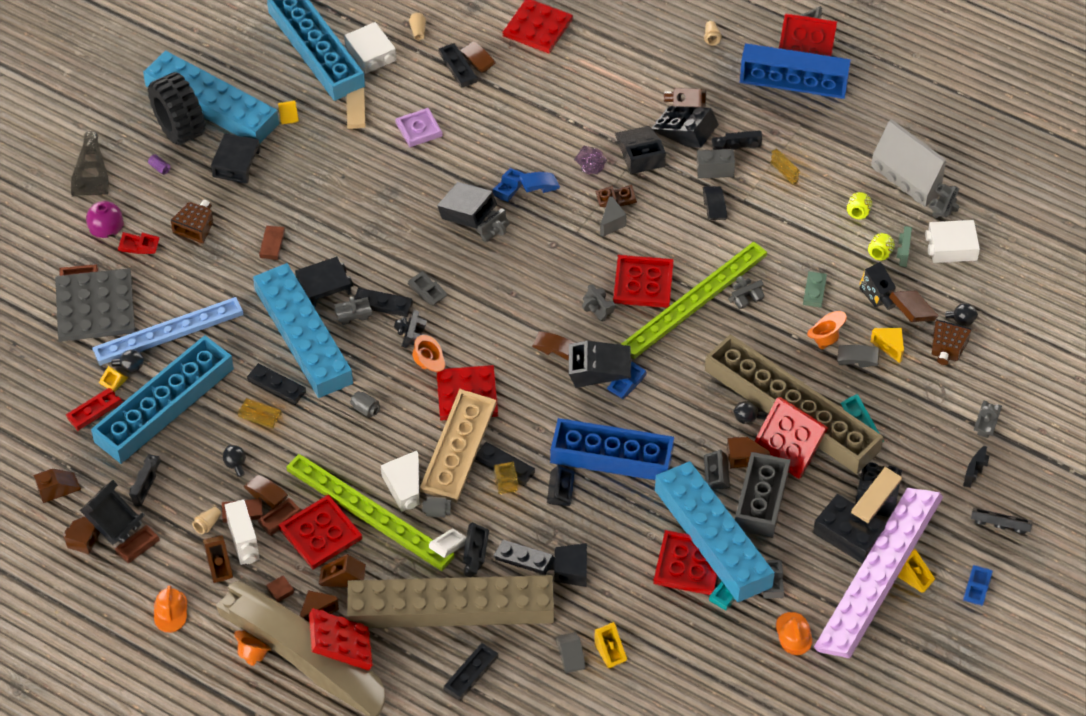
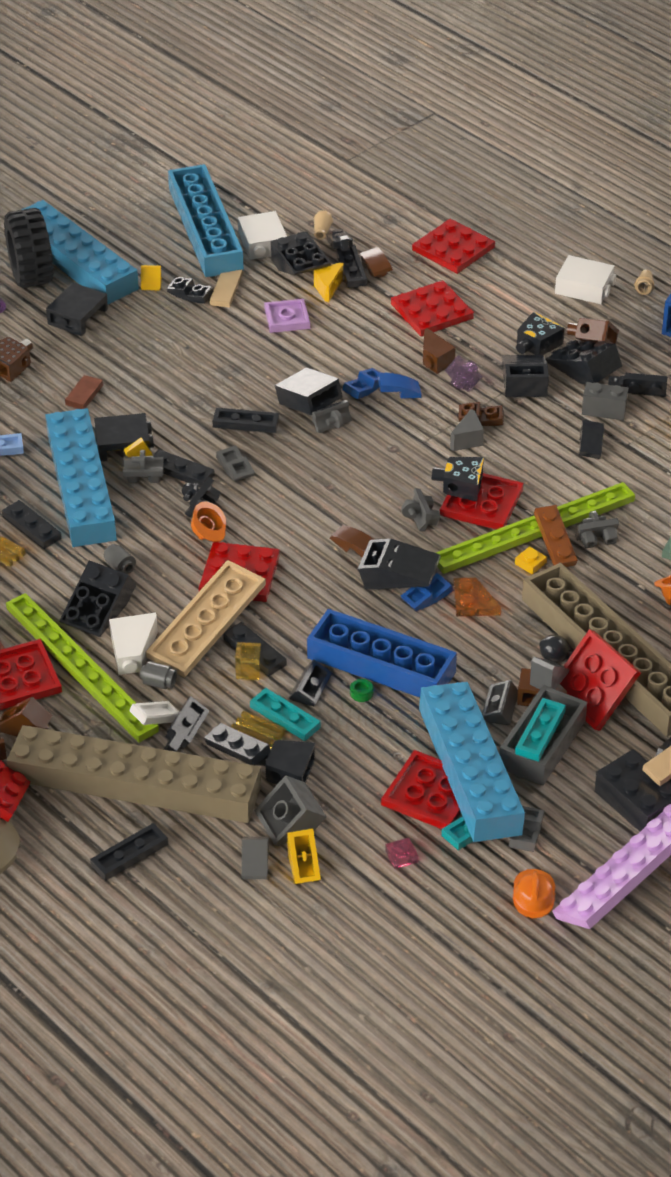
camera: 15 degrees right, 10 degrees down
(327, 119) = (186, 290): none -> black slope
(342, 294) = (134, 449): none -> yellow slope
(361, 447) = (97, 598): none -> black slope
(410, 65) = (297, 254): none -> black slope
(421, 243) = (245, 420): none -> black plate
(440, 41) = (340, 239): none -> black hinge
(442, 84) = (328, 280): none -> yellow slope
(534, 535) = (259, 727): none -> clear yellow tile
(540, 95) = (432, 307): none -> red plate
(551, 519) = (285, 714): none -> teal plate
(559, 141) = (437, 352): none -> reddish brown slope
(585, 607) = (289, 809): none -> dark grey slope
(603, 483) = (361, 690): none -> green tile
(623, 266) = (461, 477): none -> black torso
(640, 107) = (539, 335): none -> black torso
(662, 41) = (585, 279): none -> white brick
(665, 377) = (473, 599): none -> clear orange wing
(682, 622) = (401, 853): none -> clear pink plate
(700, 331) = (530, 560): none -> yellow plate
(715, 306) = (555, 536): none -> dark orange plate
(751, 440) = (546, 673): none -> dark grey slope
(763, 494) = (540, 729): none -> teal plate

